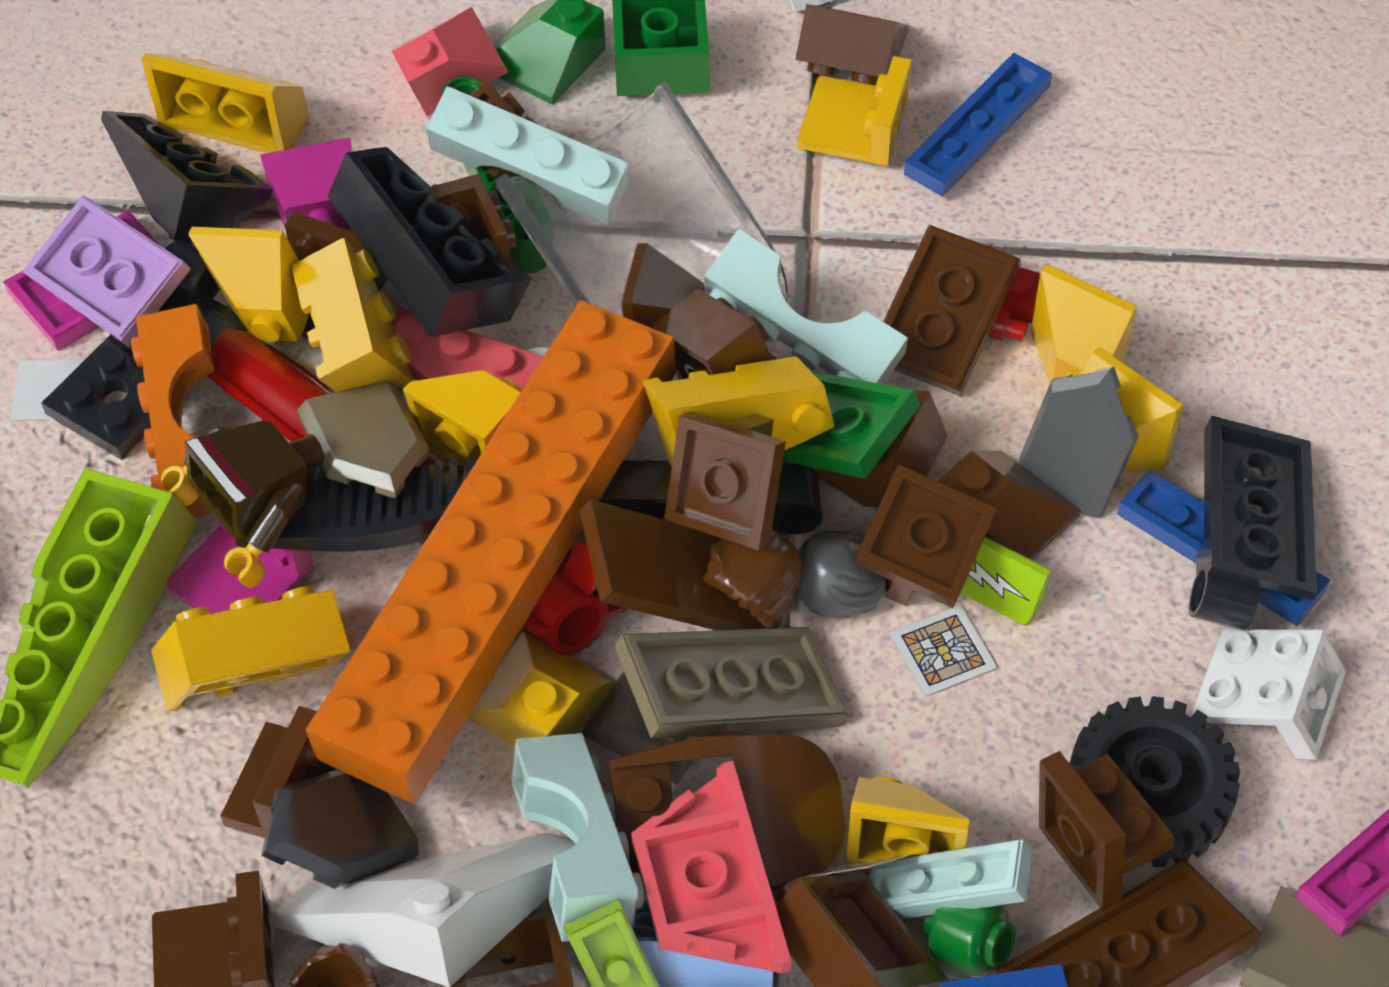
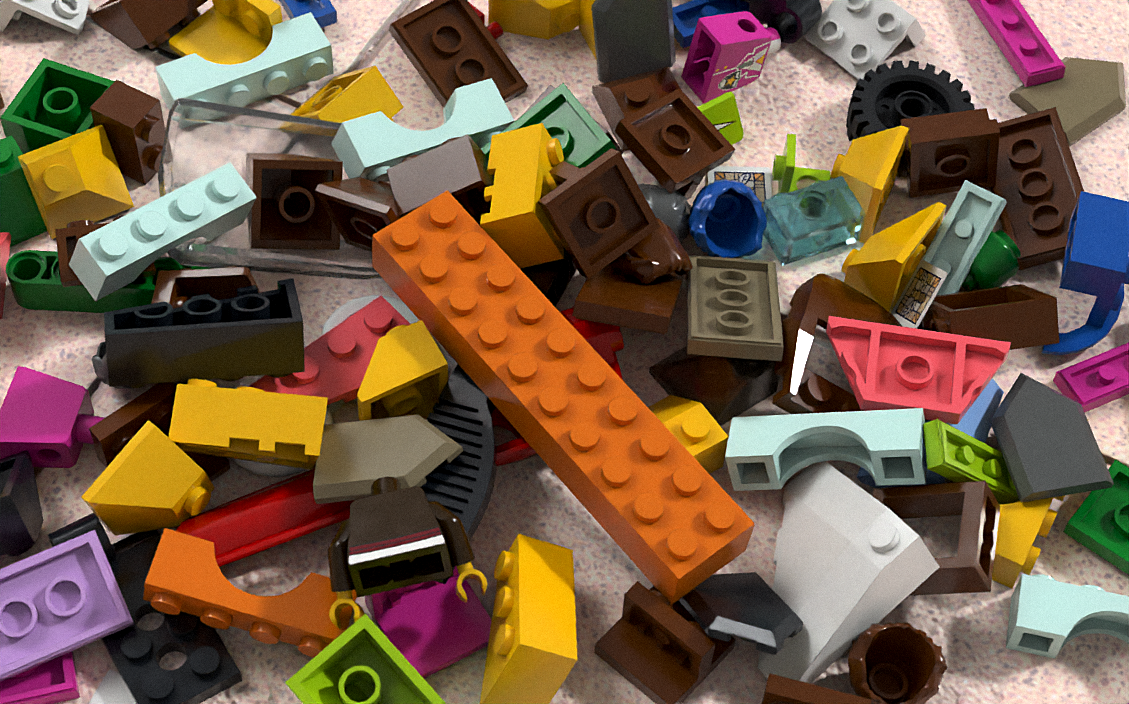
camera: 70 degrees left, 0 degrees up
(578, 77) = (76, 180): none -> yellow slope
(655, 215) = (286, 206): none -> reddish brown slope
(669, 63) = (133, 129): none -> reddish brown brick
(815, 248) = (351, 97): none -> yellow slope
(861, 177) = (293, 58): none -> light aqua arch
(866, 639) = (727, 220): none -> blue hair
(936, 754) = (812, 220): none -> clear light blue brick
(983, 680) = (786, 172): none -> lime bracket
(1001, 763) = (872, 171): none -> yellow slope
(1120, 552) = (727, 53): none -> dark pink torso

